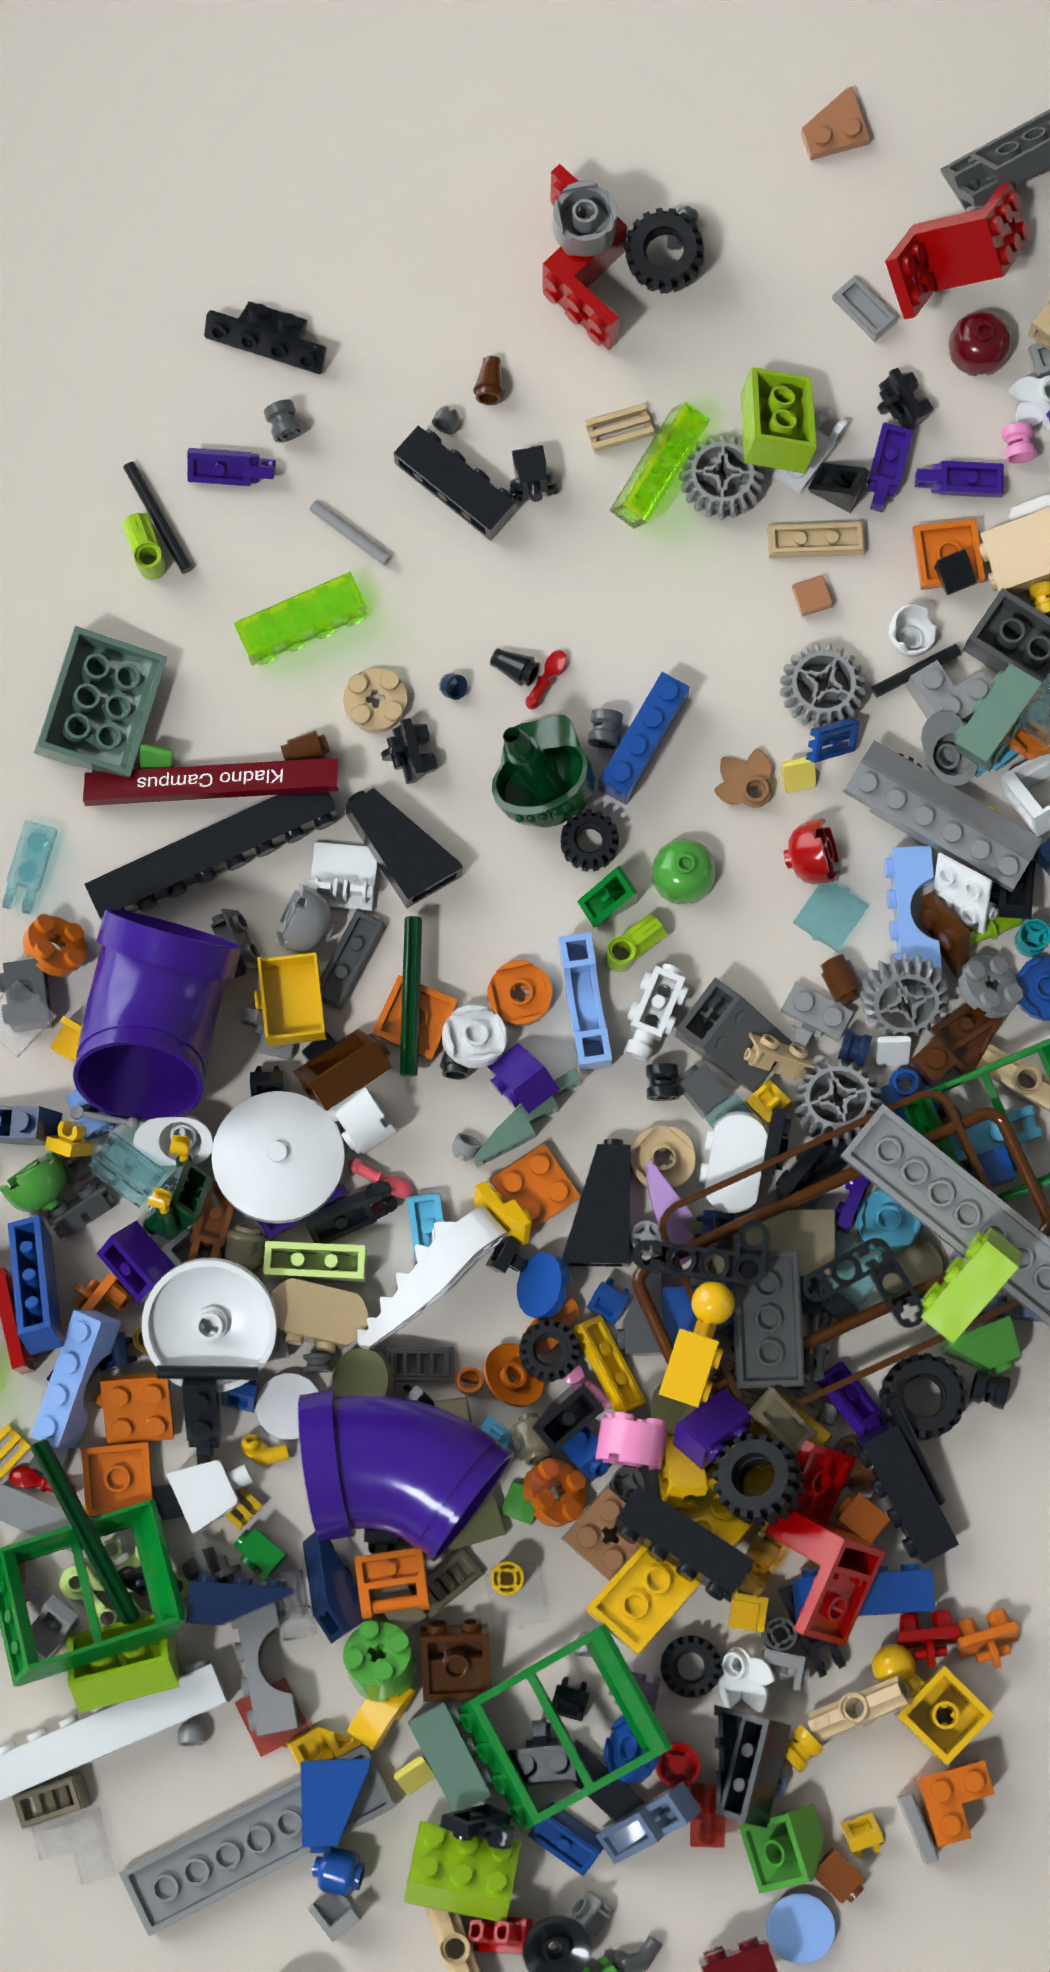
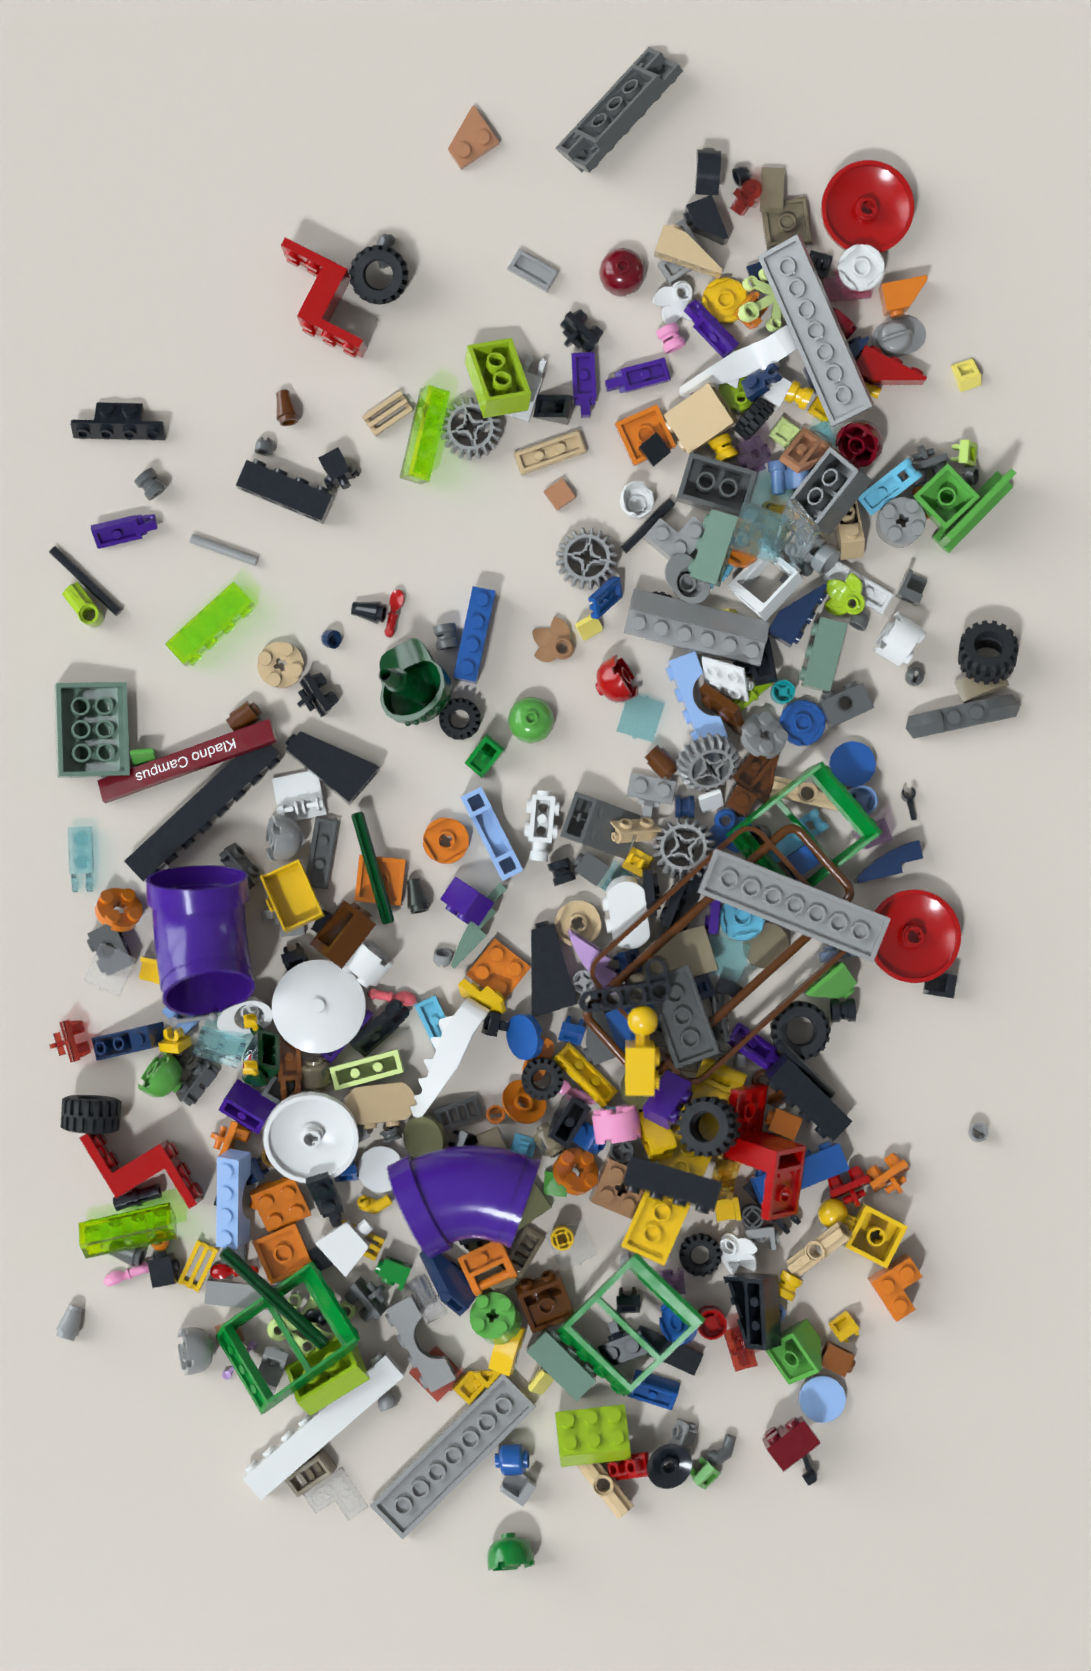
camera: 20 degrees left, 10 degrees up
(34, 1285) = (184, 1146): blue brick -> none
(207, 1372) = (320, 1169): black bar -> none
(223, 1603) = (381, 1315): dark blue slope -> none
(328, 1799) = (491, 1417): blue slope -> none
(474, 1036) = (424, 882): white tile -> none
(480, 1821) = (594, 1401): black hinge -> none
(586, 236) = (323, 265): light grey brick -> none
(636, 942) = (514, 779): lime piece -> none
(649, 1823) = (704, 1366): sand blue slope -> none
(782, 1420) = (712, 1080): dark tan tile -> none
(877, 1272) = (744, 961): black beam -> none
(918, 1828) = (879, 1311): light grey tile -> none
(957, 250) = (586, 212): red bracket -> none
(970, 1284) = (810, 954): lime brick -> none

